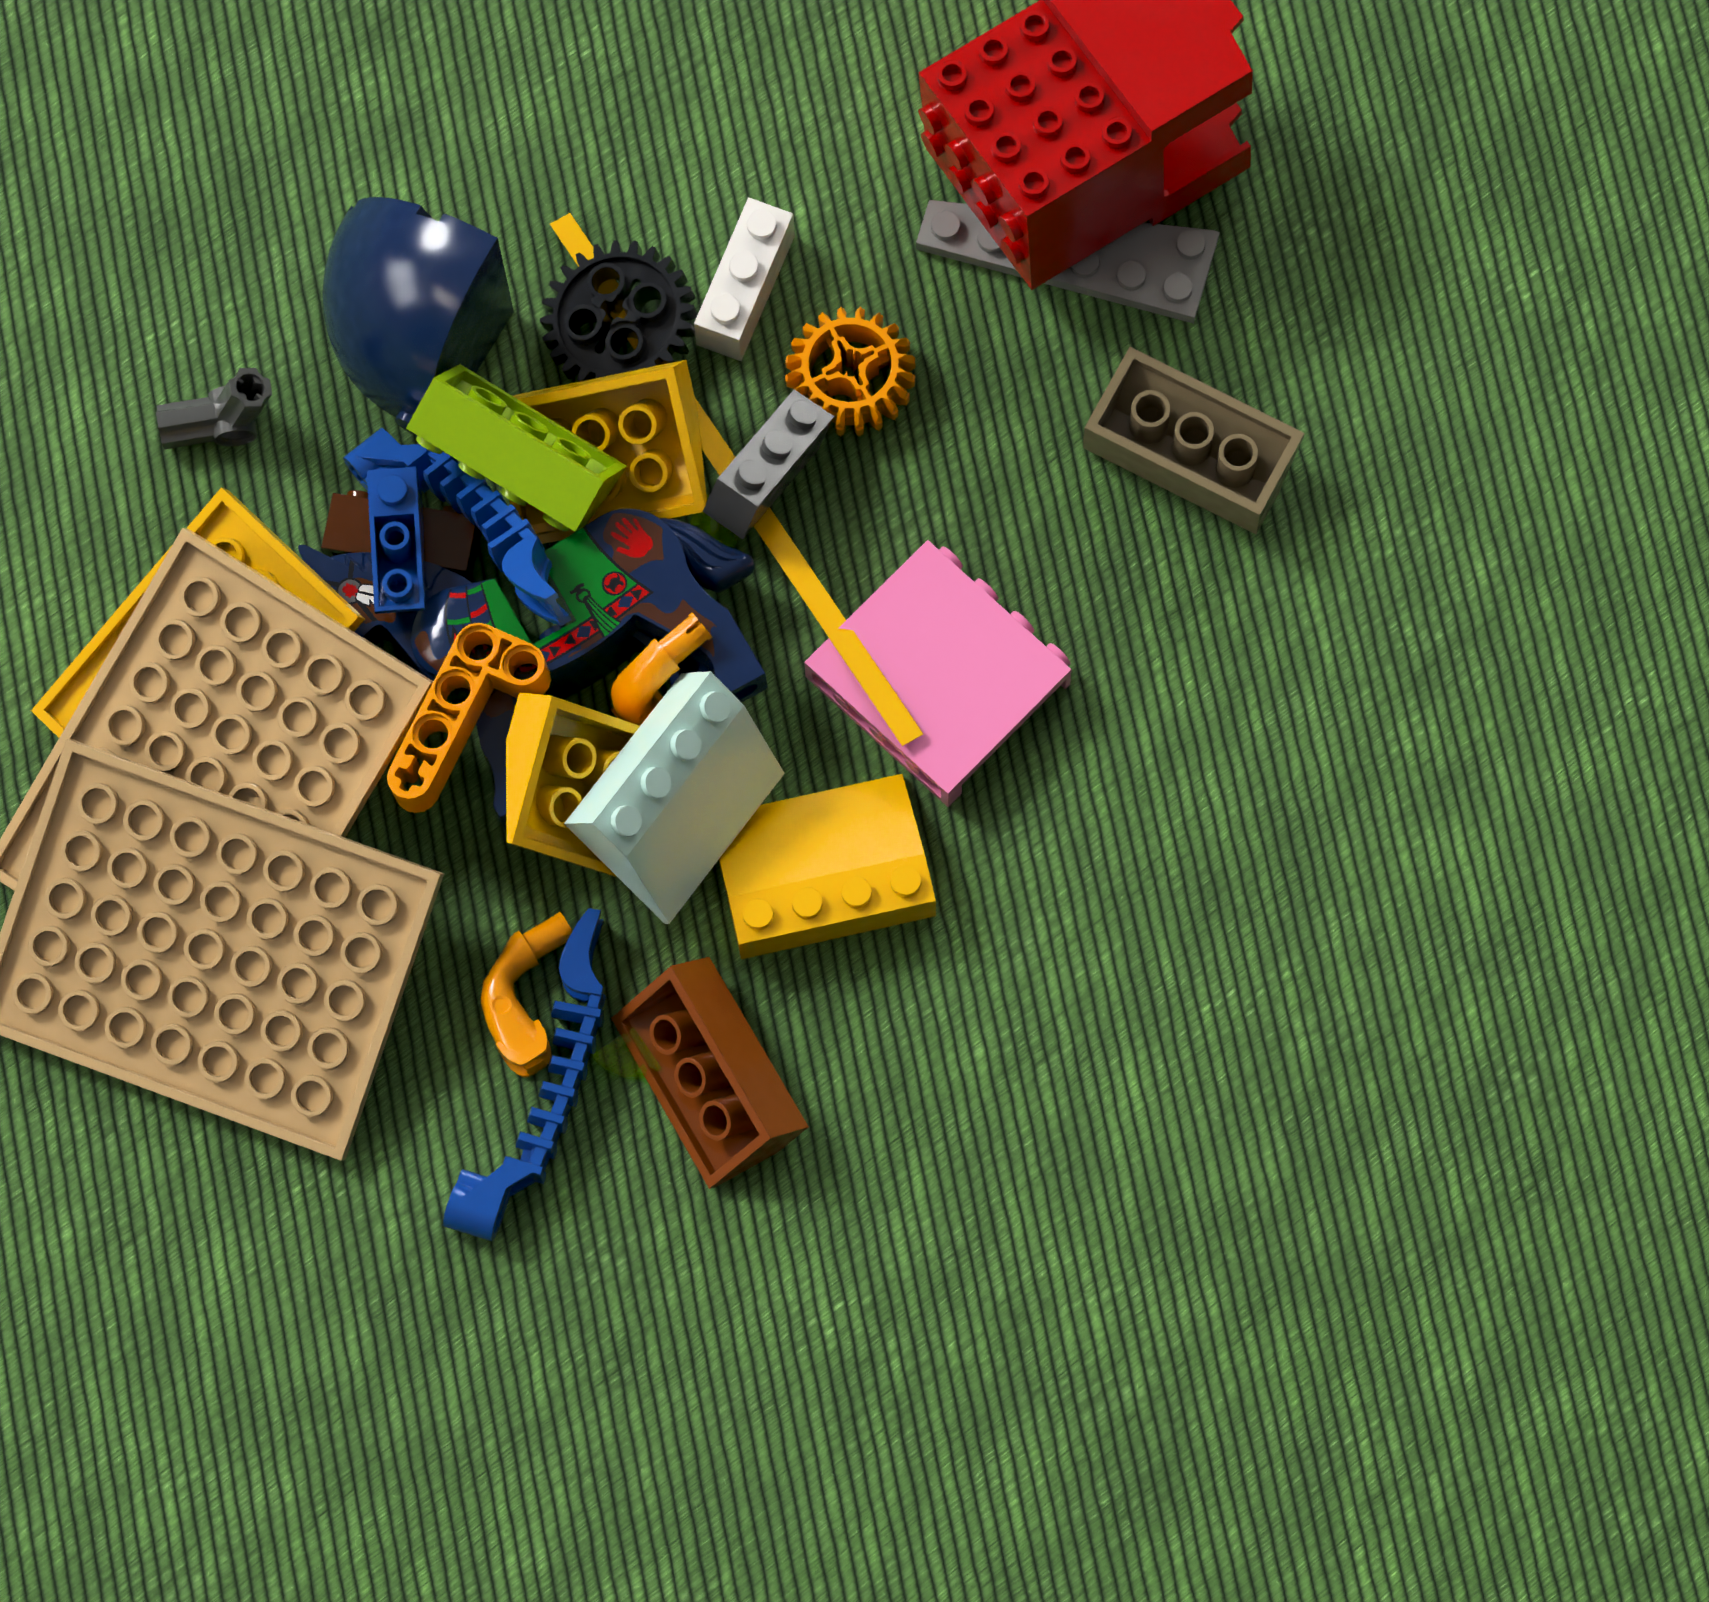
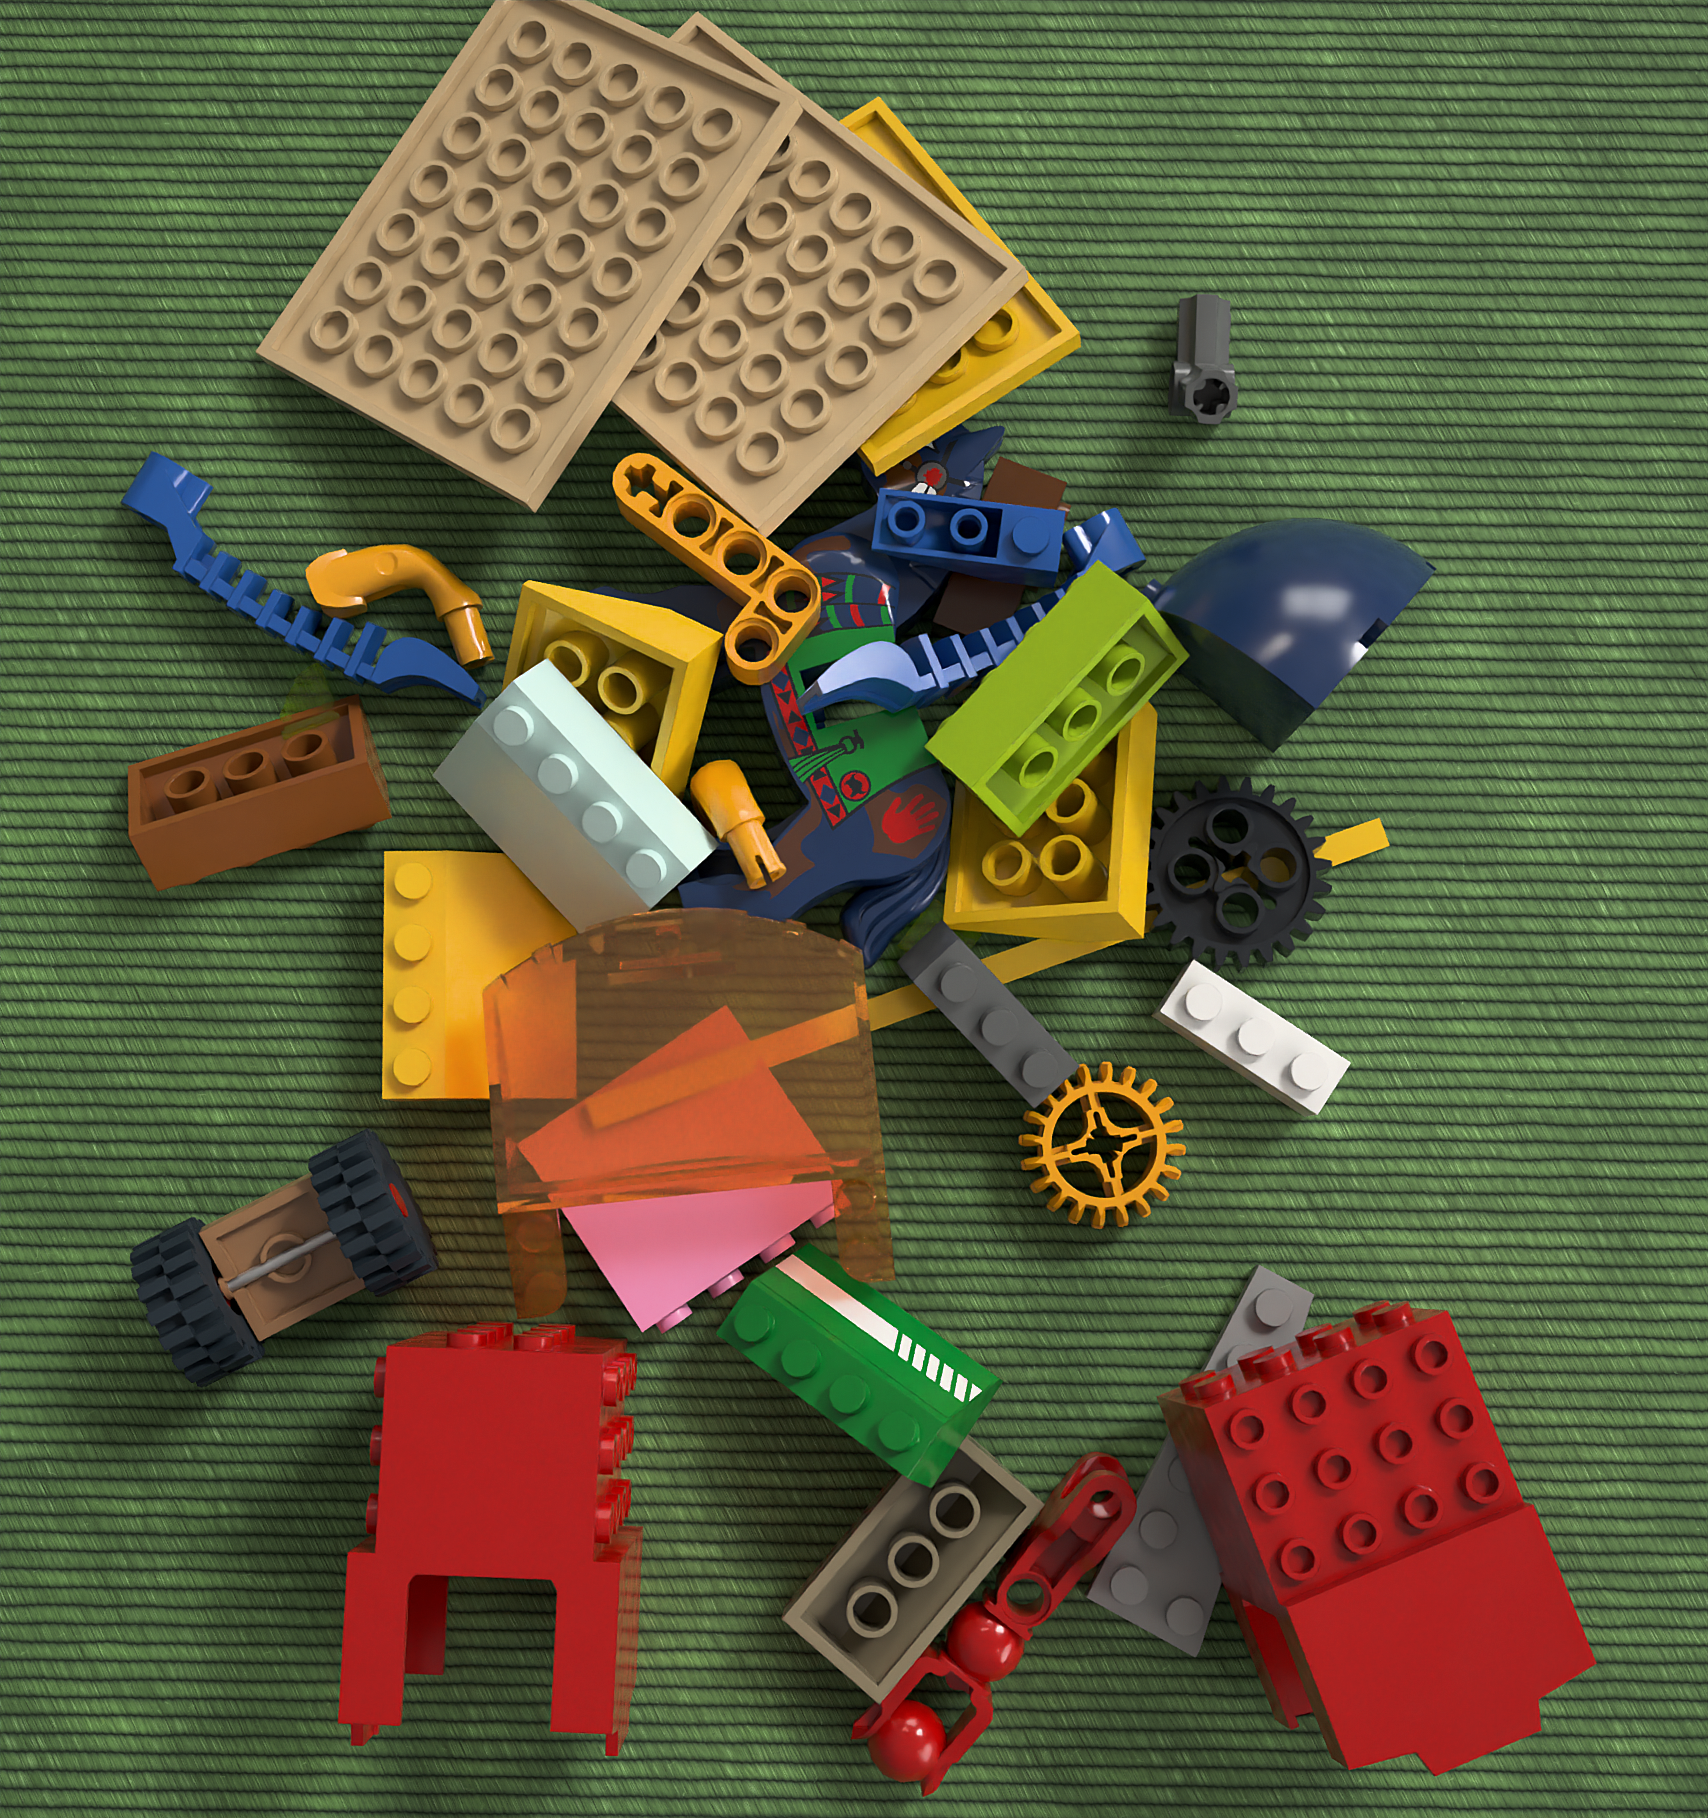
camera: 100 degrees right, 10 degrees up
(864, 671) = (678, 1066): none -> clear orange windscreen
(1054, 502) = (861, 1362): none -> green slope
(1075, 945) = (282, 1258): none -> black plate
(1190, 728) = (498, 1467): none -> red piece
(1243, 372) = (990, 1634): none -> red piece

